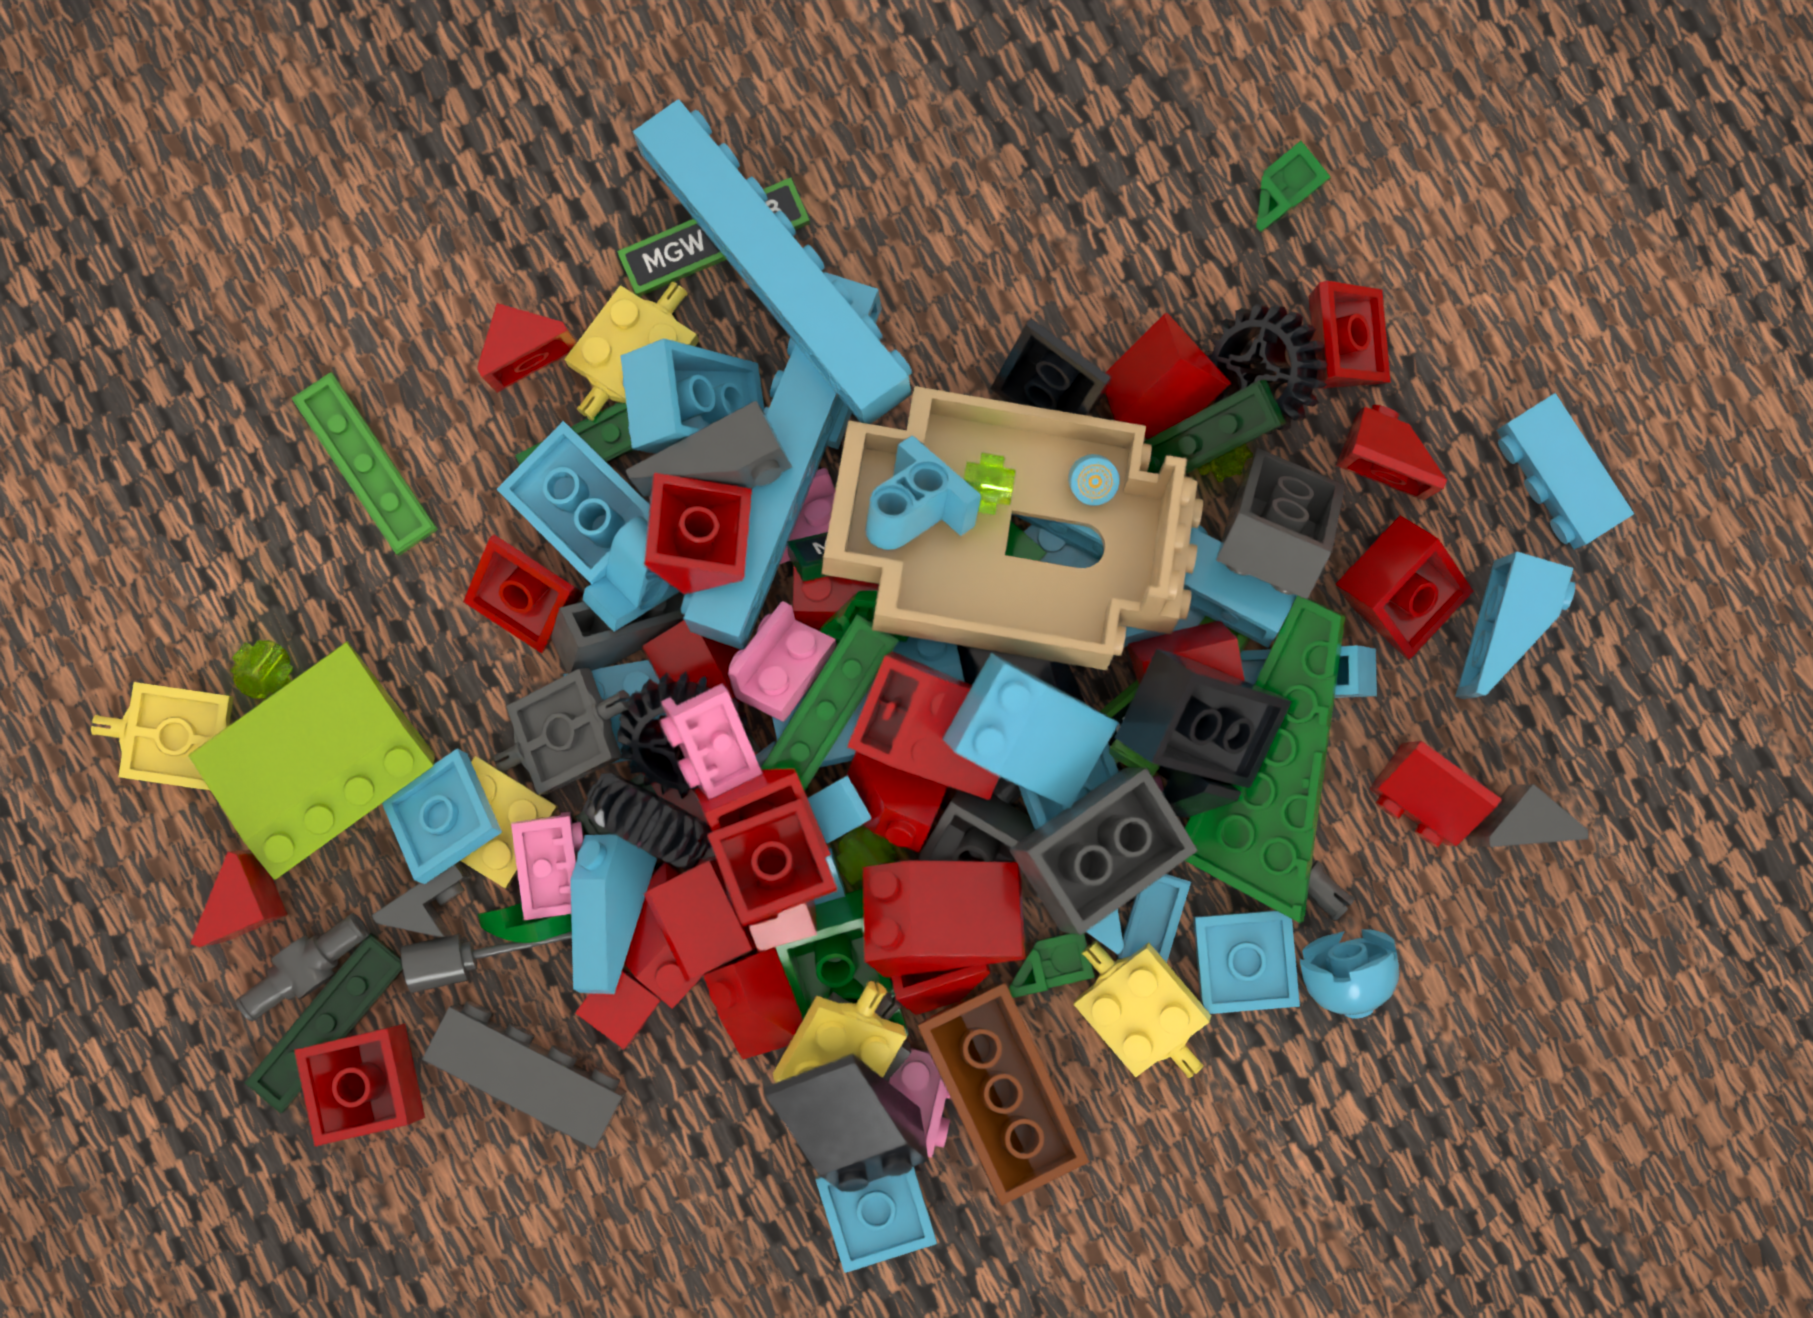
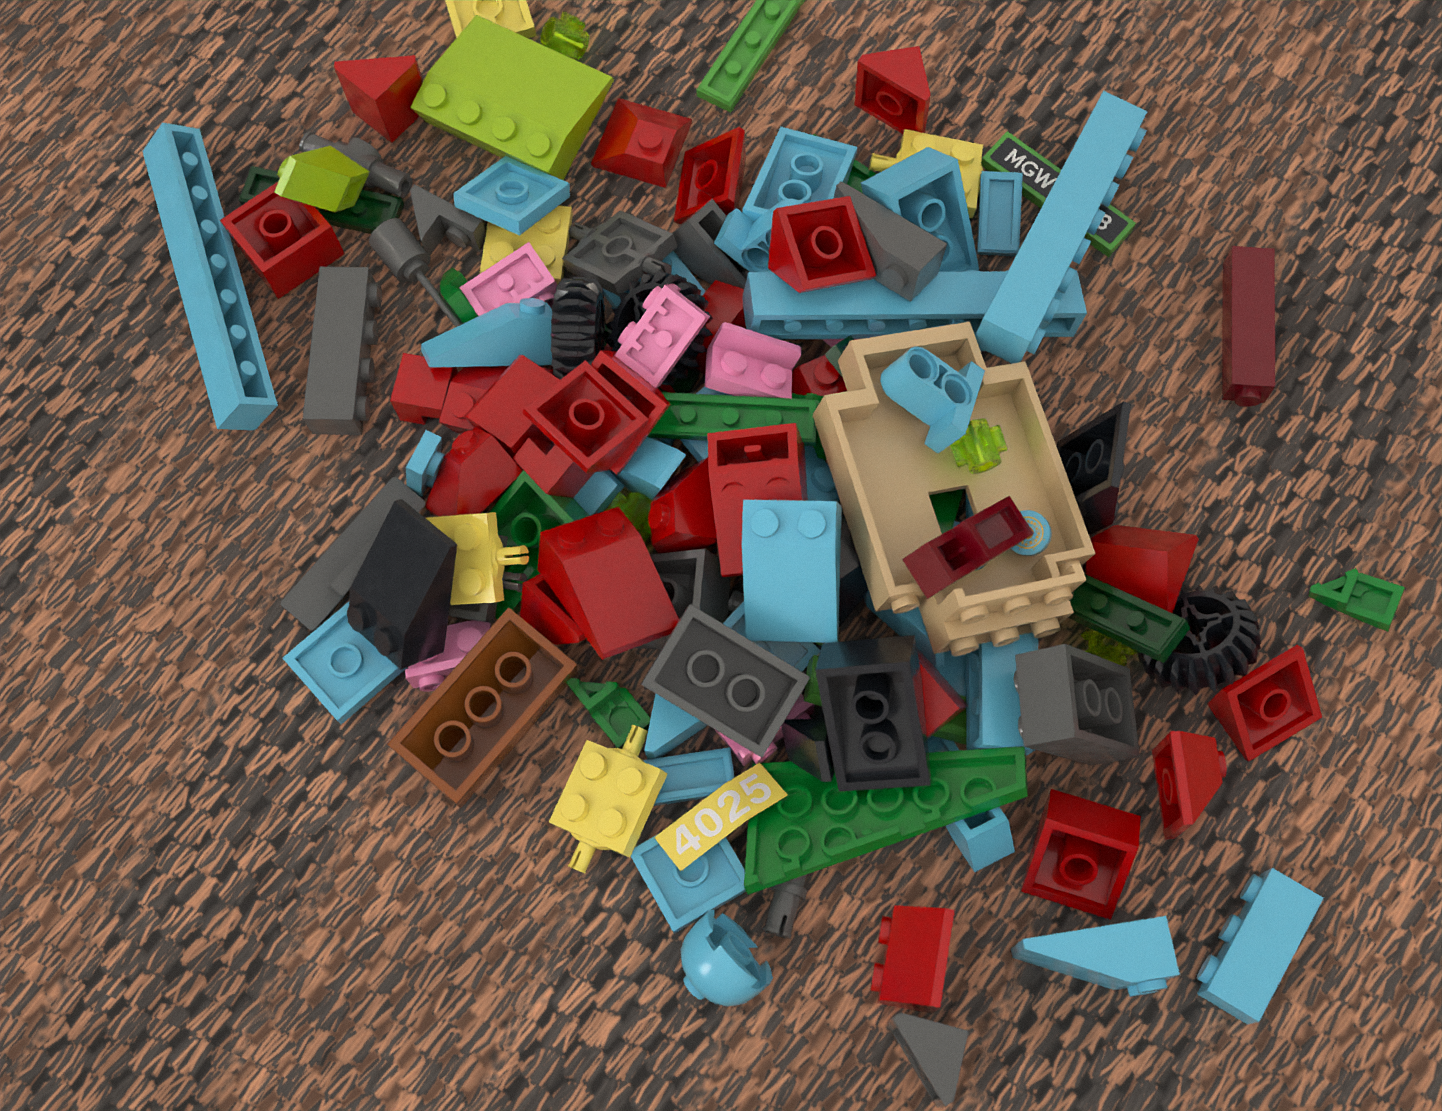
camera: 70 degrees right, 15 degrees down
(323, 1015) = (321, 179): none -> lime slope
(365, 1183) = (209, 279): none -> medium azure brick
(427, 643) = (641, 142): none -> red slope
(710, 311) = (999, 213): none -> medium azure tile
(712, 1041) = (424, 463): none -> medium azure plate
(766, 1153) = (337, 568): none -> dark grey bracket
(962, 130) = (1248, 325): none -> dark red brick
(1095, 551) = (967, 546): none -> dark red slope
(1214, 912) = (719, 815): none -> light yellow sticker

